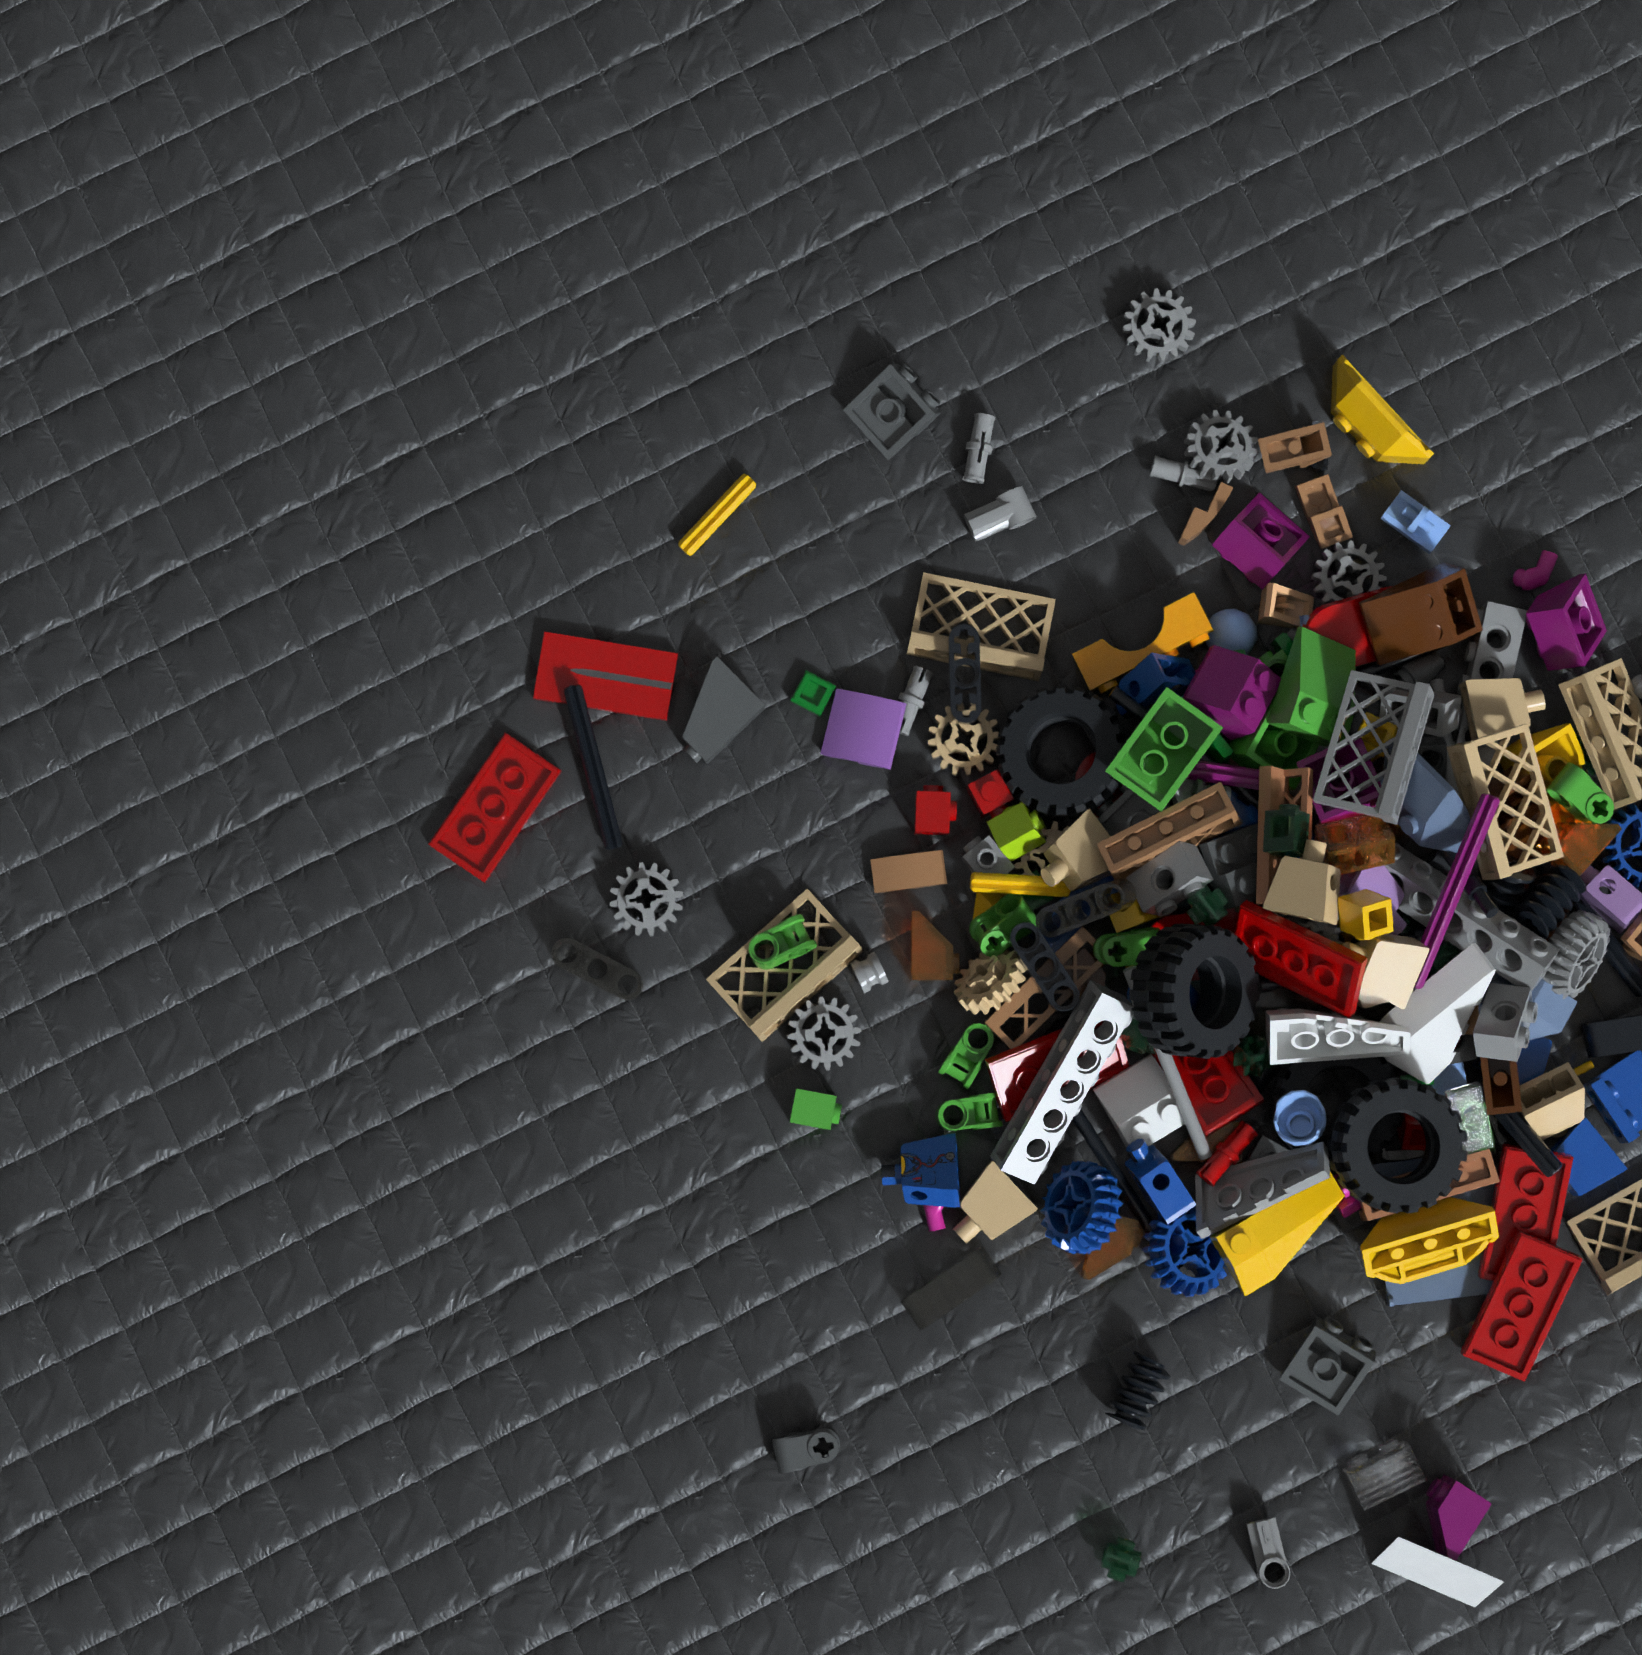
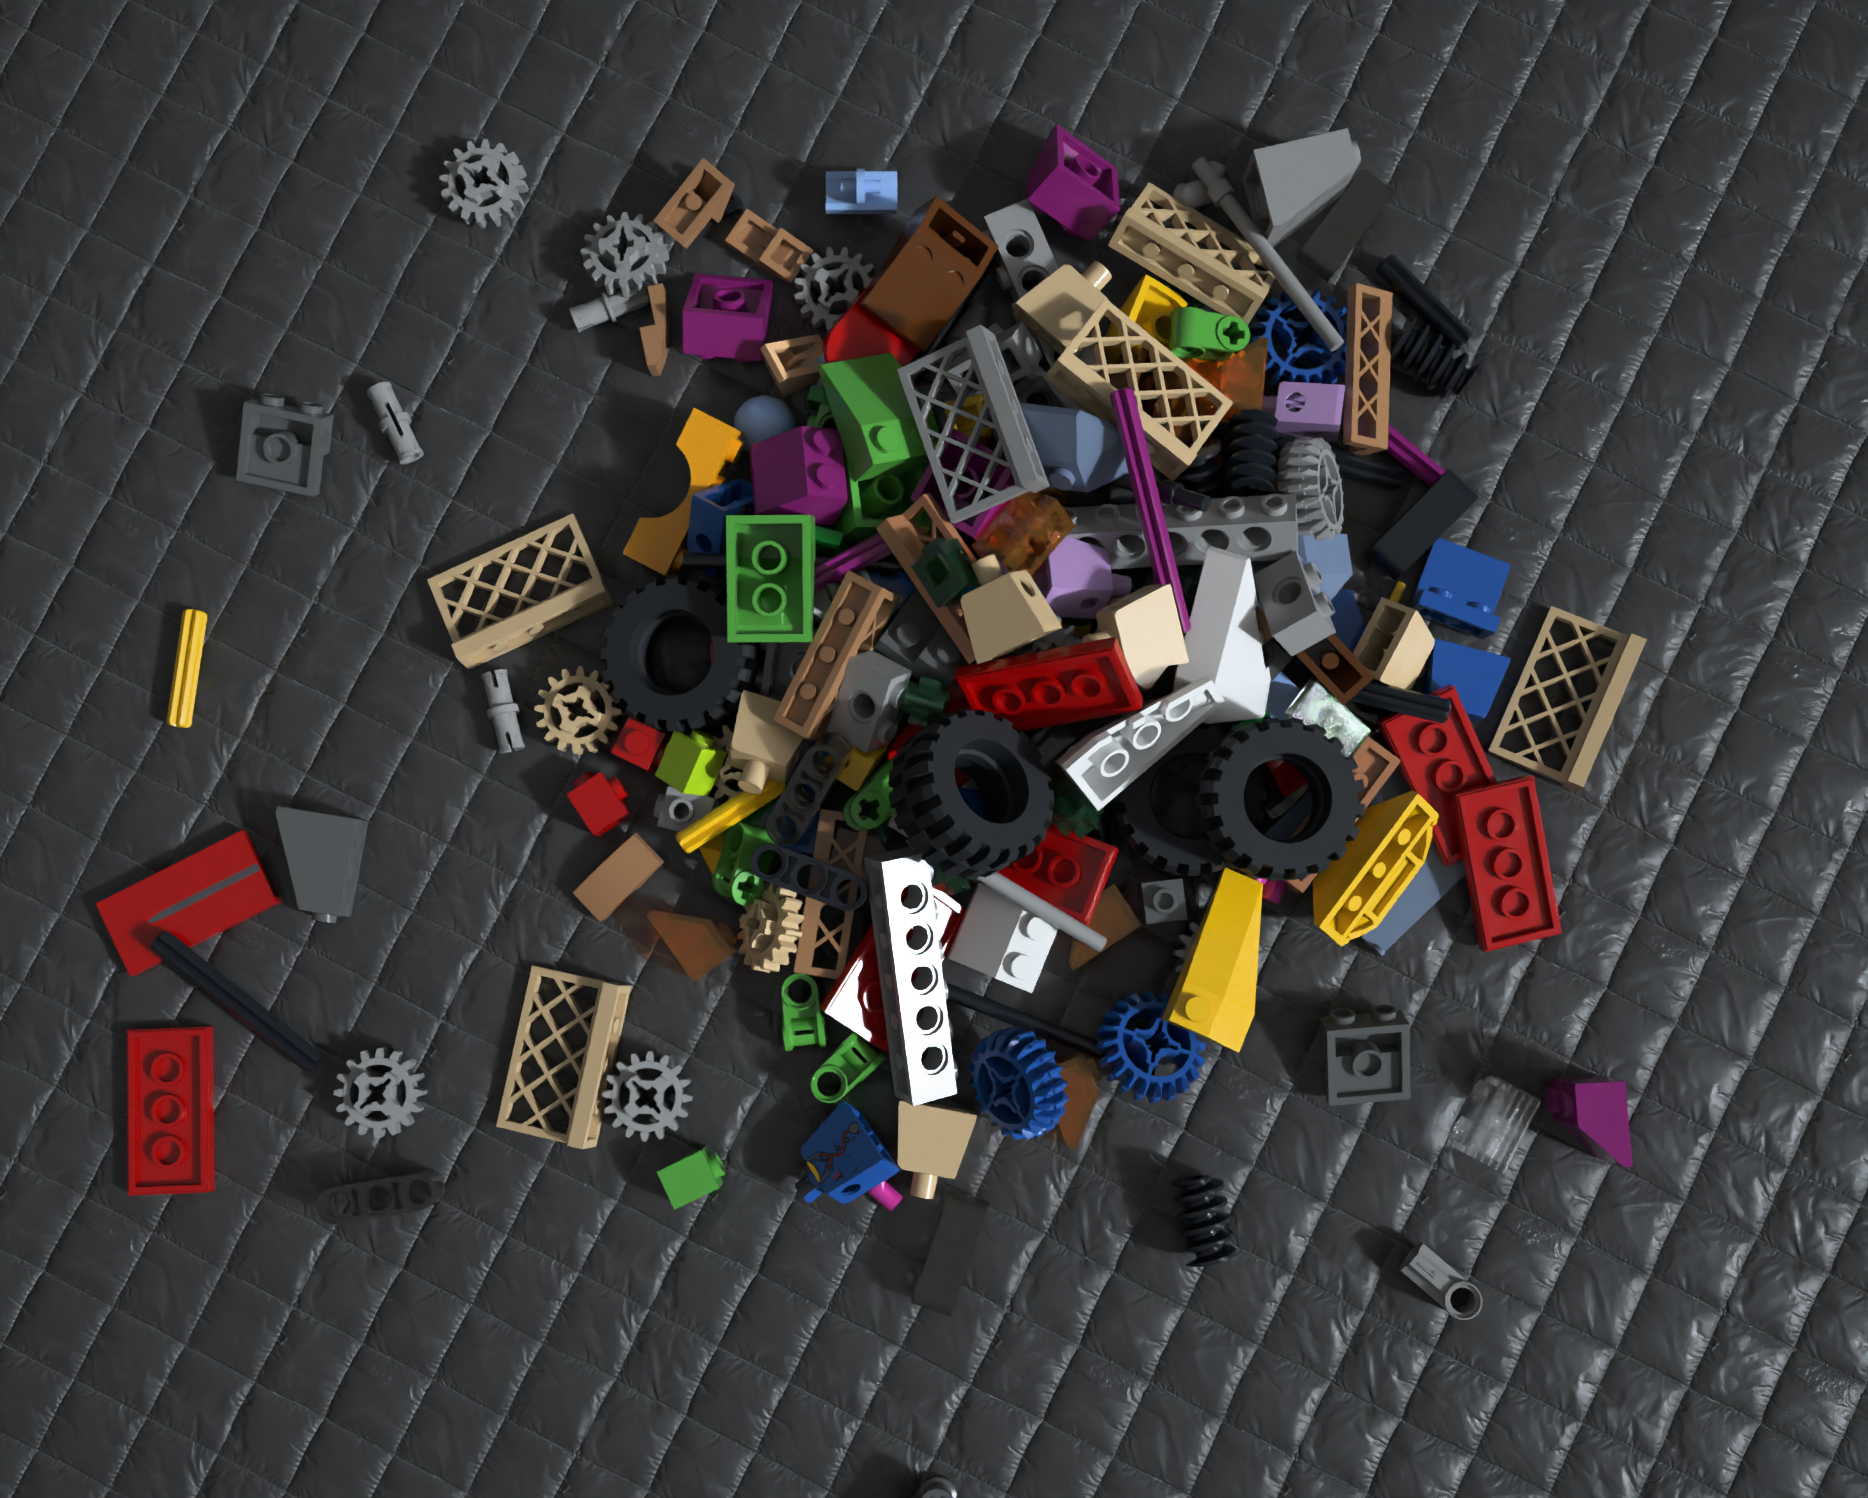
camera: 30 degrees left, 0 degrees up
(783, 942) = (542, 1037): bright green piece -> none
(813, 693) = (403, 772): green tile -> none
(863, 728) = (474, 771): medium lavender slope -> none
(869, 972) = (649, 1003): light grey wheel -> none
(972, 648) = (521, 617): black beam -> none
(1008, 511) = (465, 462): light grey piece -> none
(1121, 1559) = (1305, 1396): clear green gear -> none
(1158, 1181) = (1073, 1003): blue torso -> none
(1227, 1153) = (1120, 926): red pin -> none
(1258, 1185) = (1168, 941): light grey wing -> none
(1299, 1118) = (1165, 842): light blue hair -> none
(1365, 914) = (1083, 596): yellow brick -> none
(1371, 420) = (753, 127): yellow wedge -> none
(1437, 1572) = (1618, 1183): white sticker -> none
(1538, 575) = (1014, 161): dark pink arm -> none

